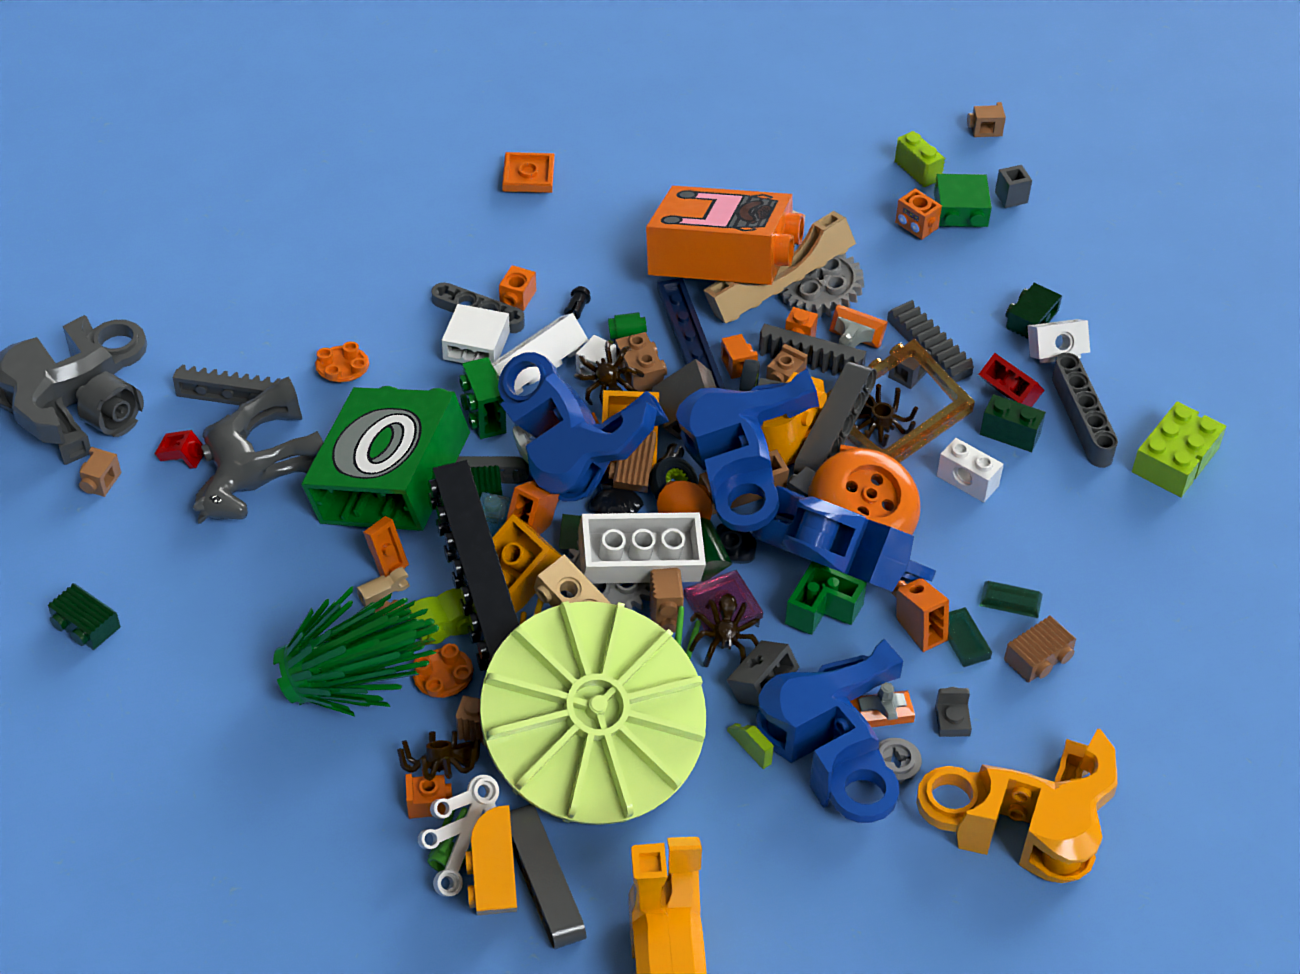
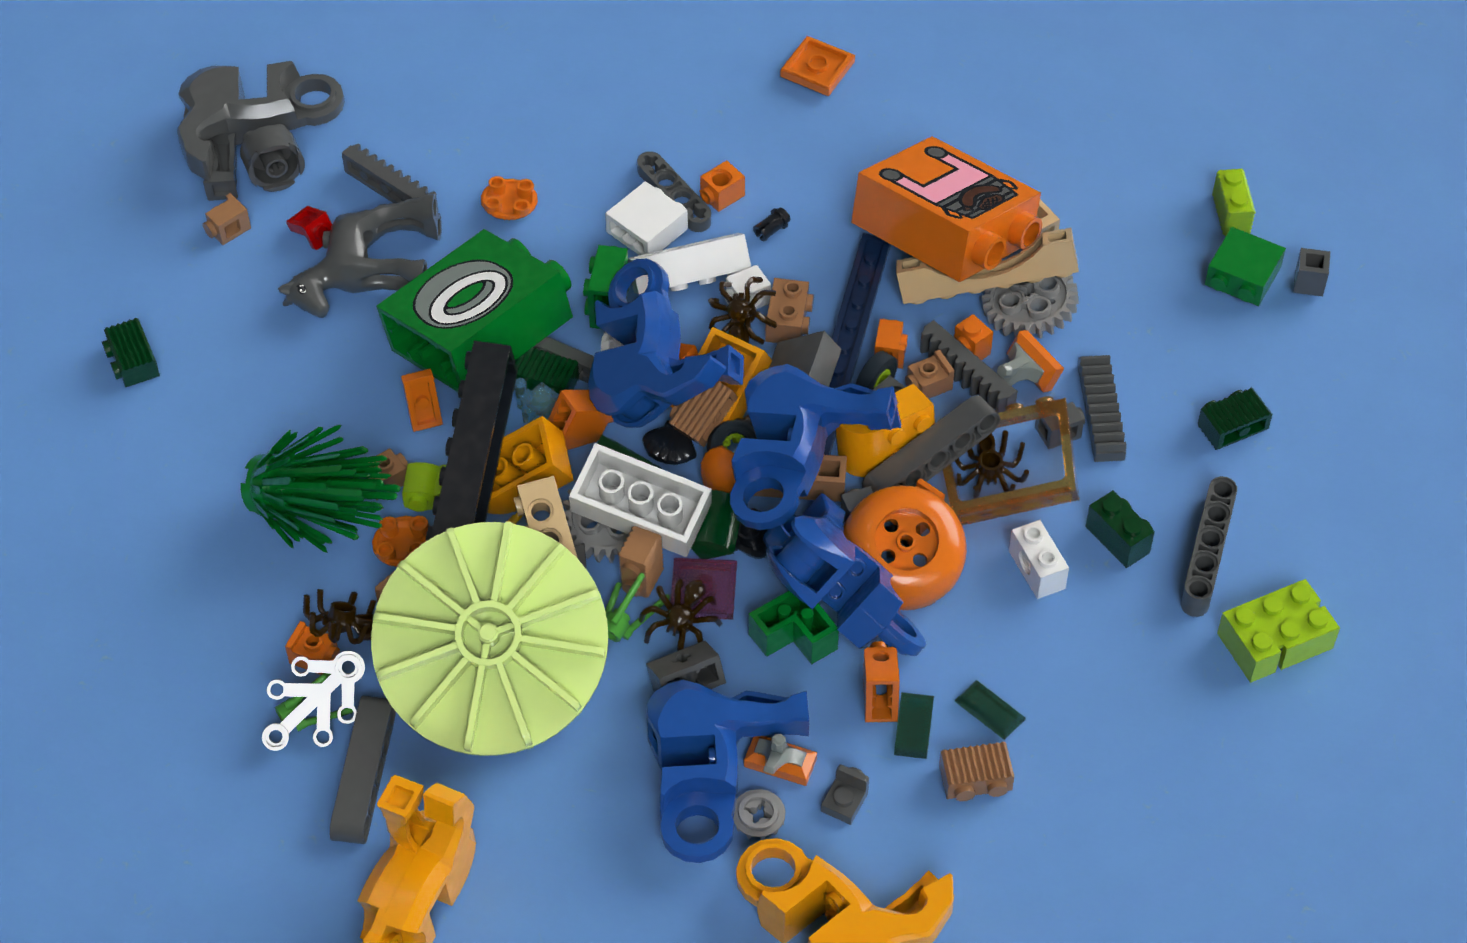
camera: 30 degrees right, 5 degrees up
(382, 586) = (402, 436): tan bar -> none
(492, 864) = (313, 736): light orange brick -> none
(626, 325) = (802, 268): green brick -> none
(753, 743) = (634, 736): lime tile -> none
(918, 213) = (1184, 263): orange head -> none
(987, 120) = (1342, 186): medium nougat brick -> none
(1011, 381) = (1147, 485): red brick -> none
(1043, 338) = (1252, 455): white brick -> none

